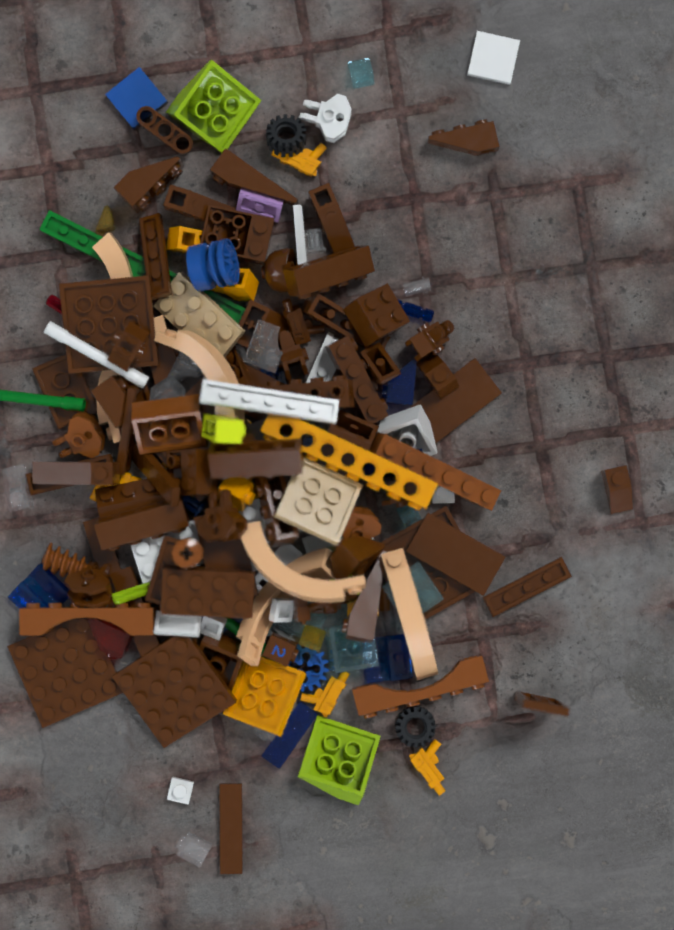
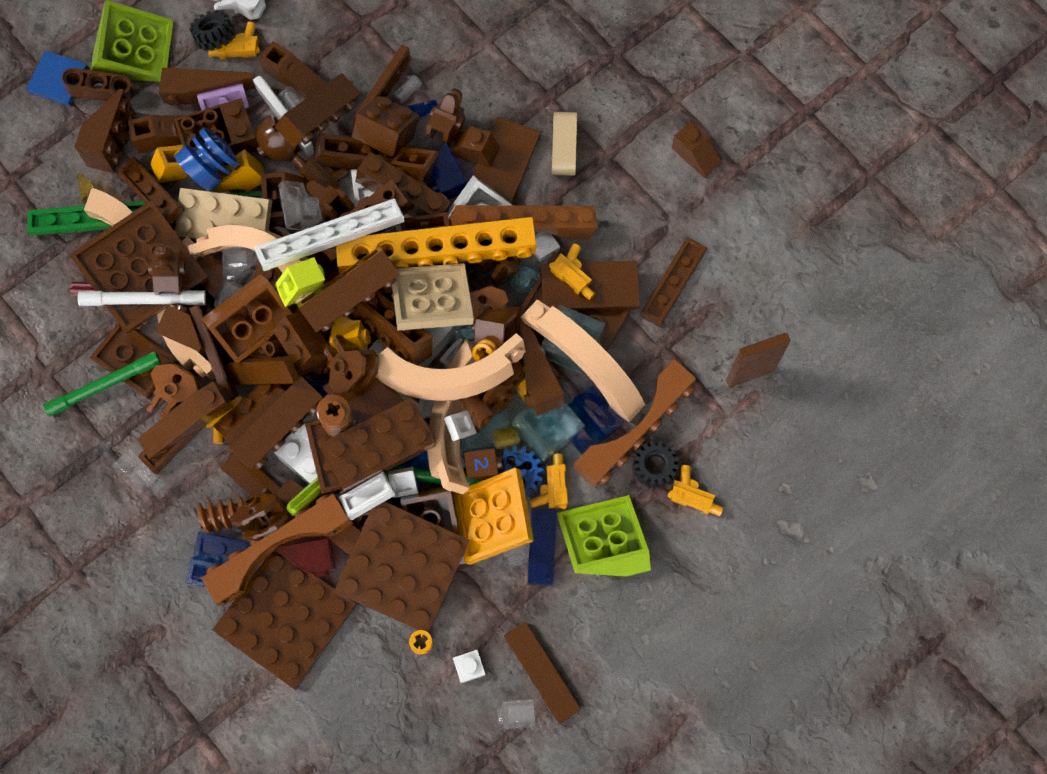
camera: 30 degrees left, 15 degrees down
(150, 746) = (429, 643): none -> light orange bush
(333, 565) = (478, 354): none -> light orange bush
(399, 272) = (389, 76): none -> reddish brown tile
(444, 533) = (569, 271): none -> light orange piece
(514, 415) = (564, 143): none -> tan beam

